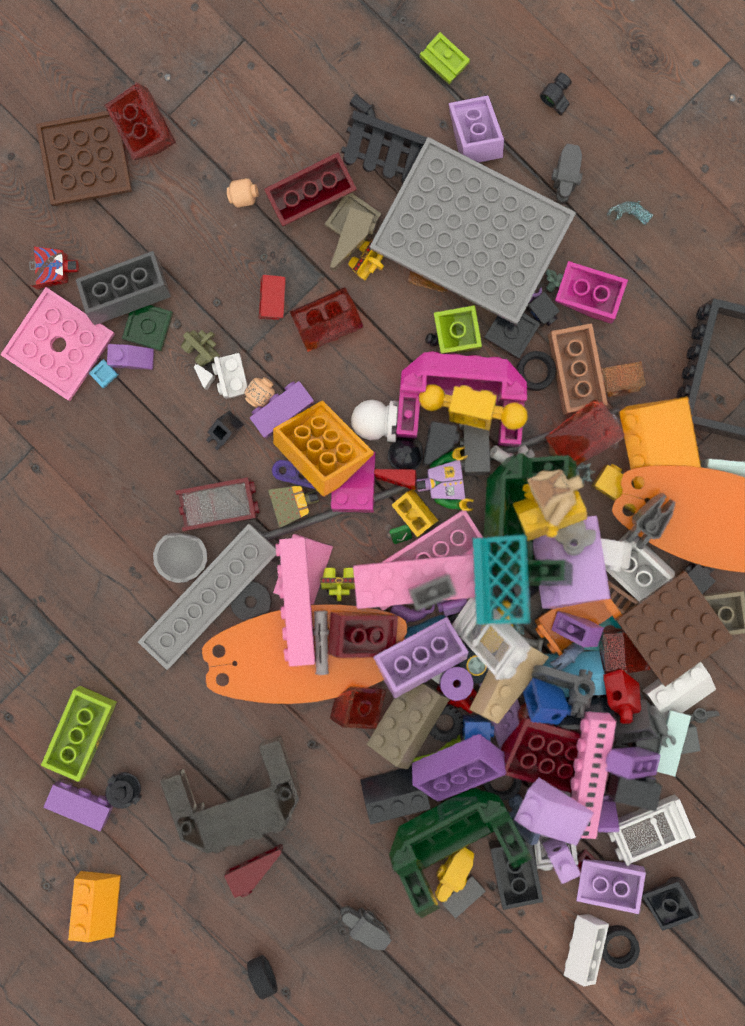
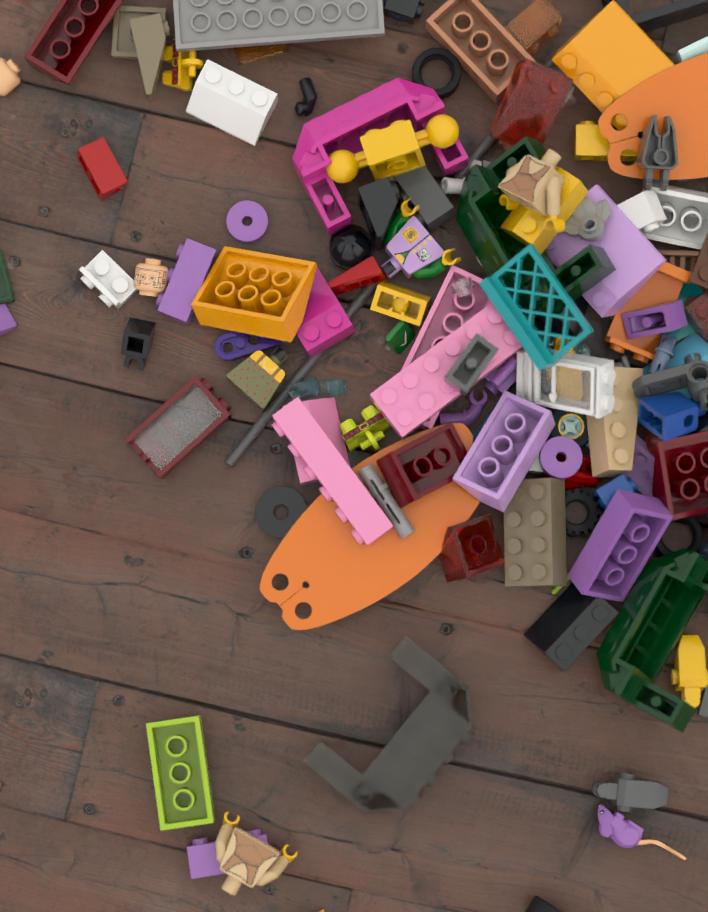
camera: 30 degrees left, 5 degrees down
(86, 818) = (247, 857): none -> torso
(123, 790) = (268, 805): black cap -> none
(180, 557) = (174, 507): light grey cylinder -> none
(203, 344) = (44, 267): olive hips -> none
(205, 377) = (80, 296): white slope -> none
(208, 596) = (231, 534): light grey plate -> none
(246, 875) = (465, 814): dark red slope -> none
(323, 531) = (314, 386): none -> clear light blue piece
(326, 319) = (176, 155): clear red slope -> none
(346, 949) = (625, 832): none -> medium lavender animal
(351, 384) = (244, 210): none -> medium lavender piece
(374, 420) = (294, 230): white tile -> none
(386, 306) = (231, 102): none -> white slope
(458, 330) = (326, 80): lime slope -> none
(462, 529) = (462, 286): none -> clear plate
(512, 337) = (386, 53): black plate -> none
(587, 472) = (560, 147): clear light blue gear -> none

